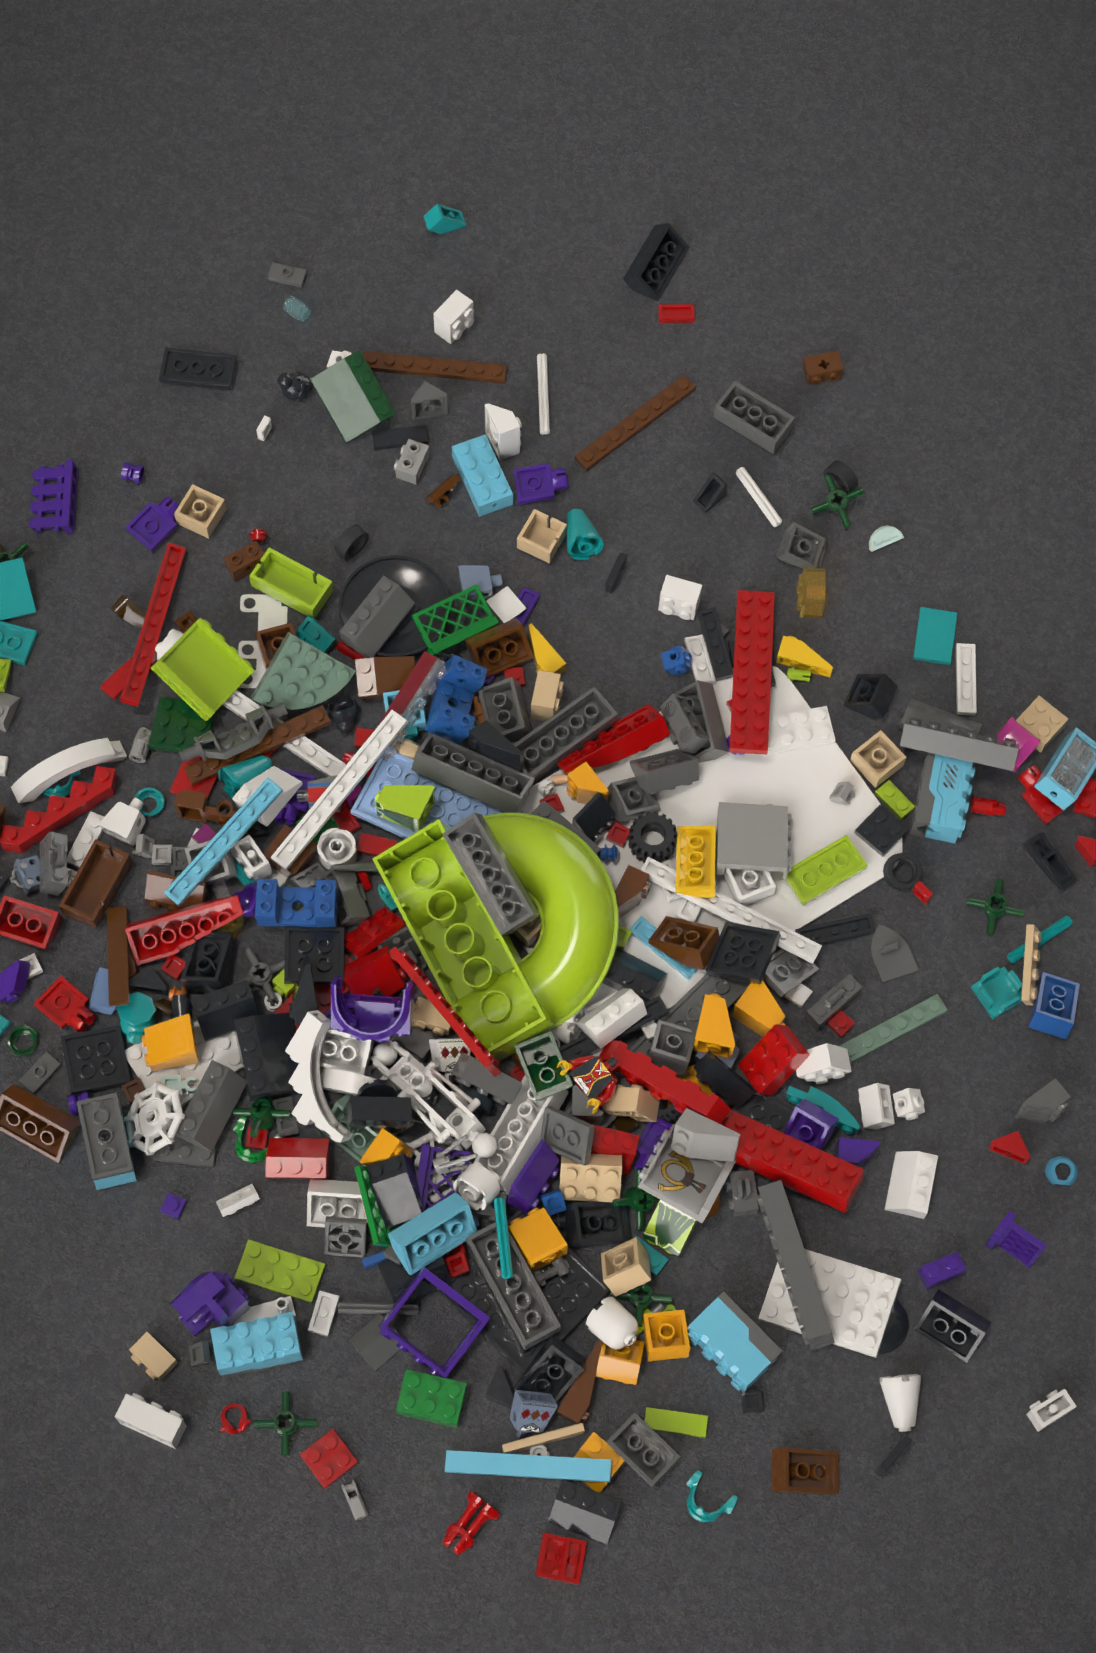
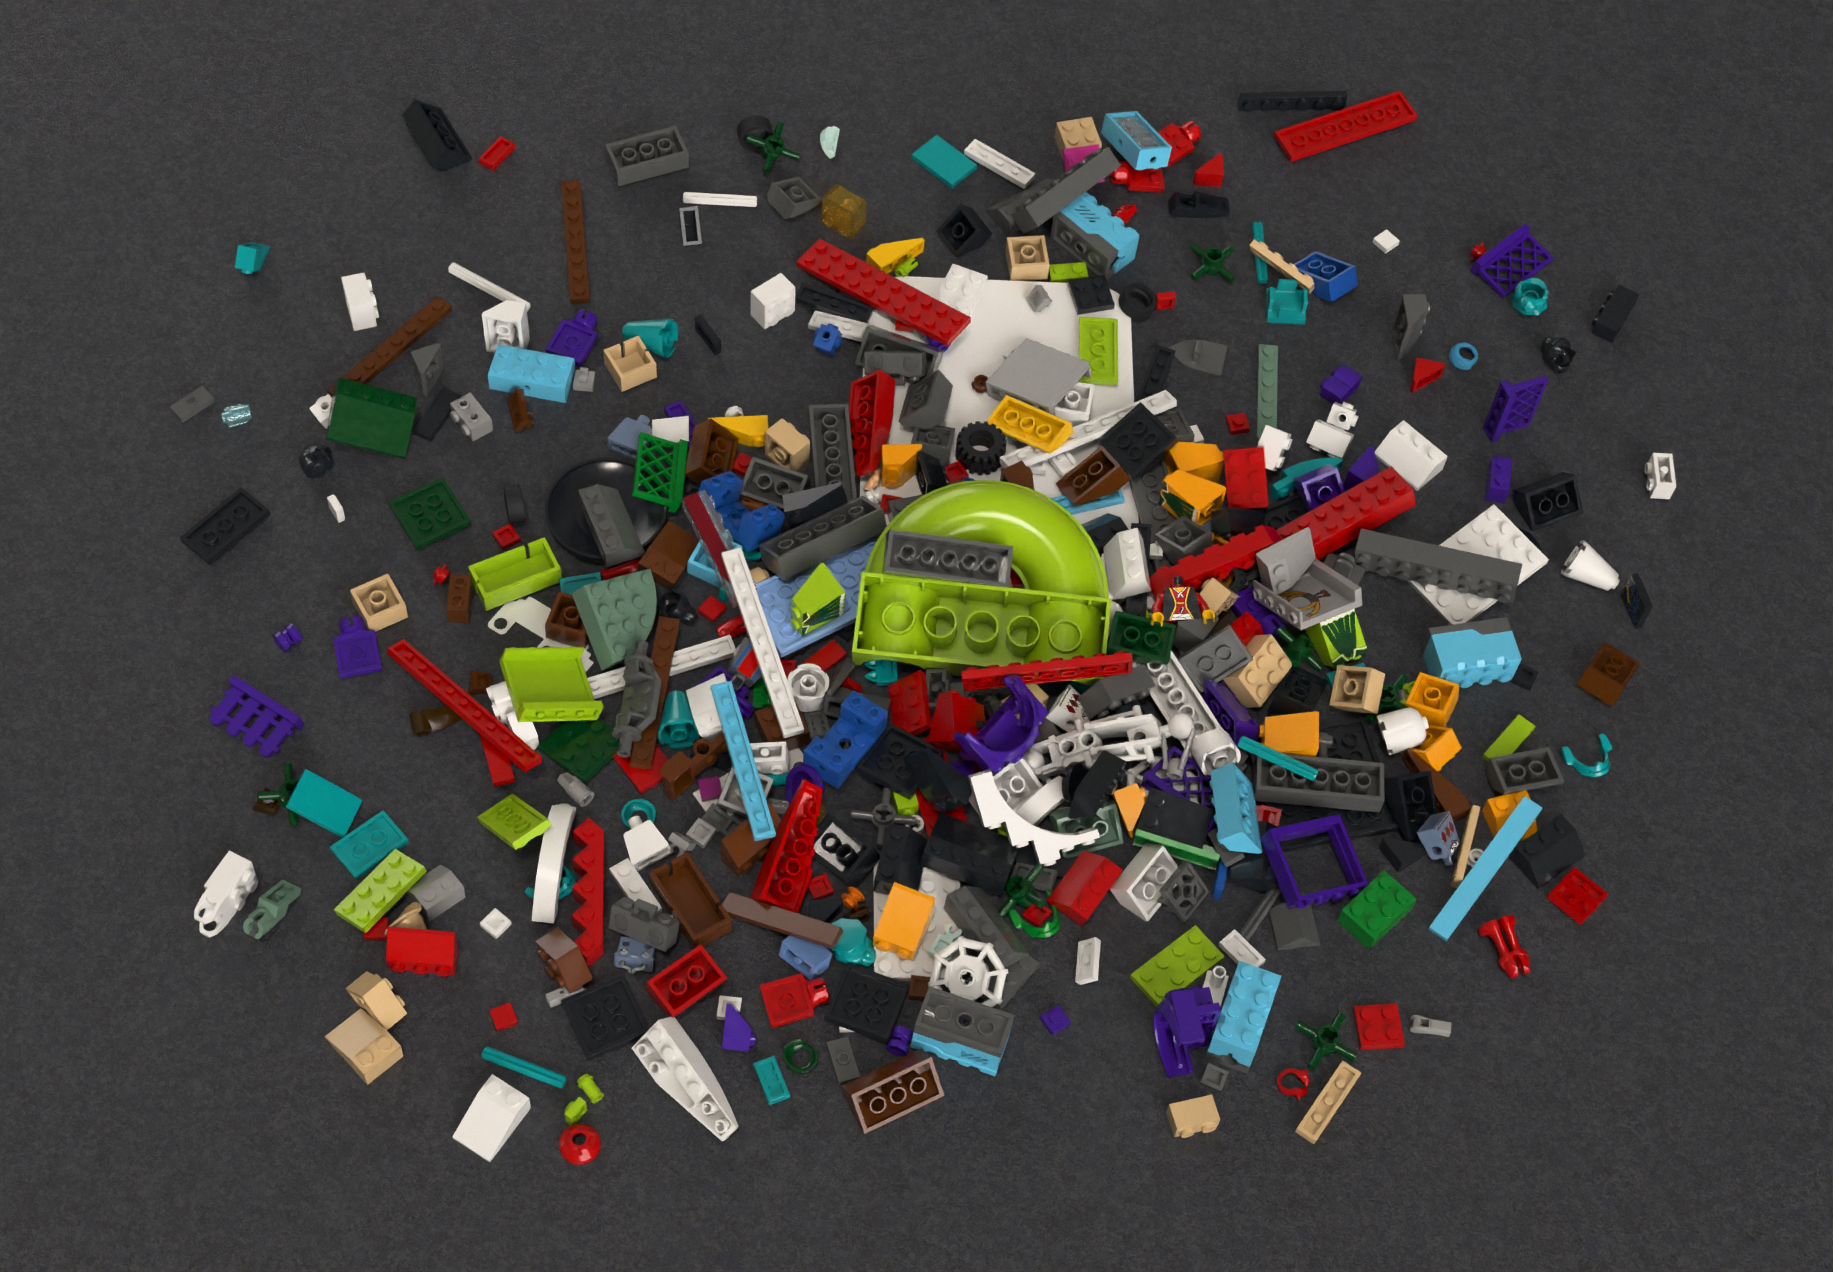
camera: 60 degrees left, 10 degrees down
(75, 721) = (514, 821): none -> lime plate
(151, 1420) = (1258, 1148): white brick -> none
(154, 683) = (524, 730): none -> white slope
(181, 1005) = (873, 896): black brick -> none
(232, 1455) = (1328, 1102): none -> tan plate
(306, 492) = (429, 513): none -> dark green plate
(325, 556) = (506, 537): none -> red tile
(507, 515) = (584, 380): none -> light grey tile
(553, 1202) = (1262, 708): blue plate -> none
(555, 639) = (734, 412): none -> white plate
(720, 796) = (980, 380): none -> reddish brown plate
(822, 367) = (640, 87): reddish brown brick -> none
(833, 1002) = (1217, 415): dark grey piece -> none
(944, 1084) = (1340, 384): none -> dark purple brick

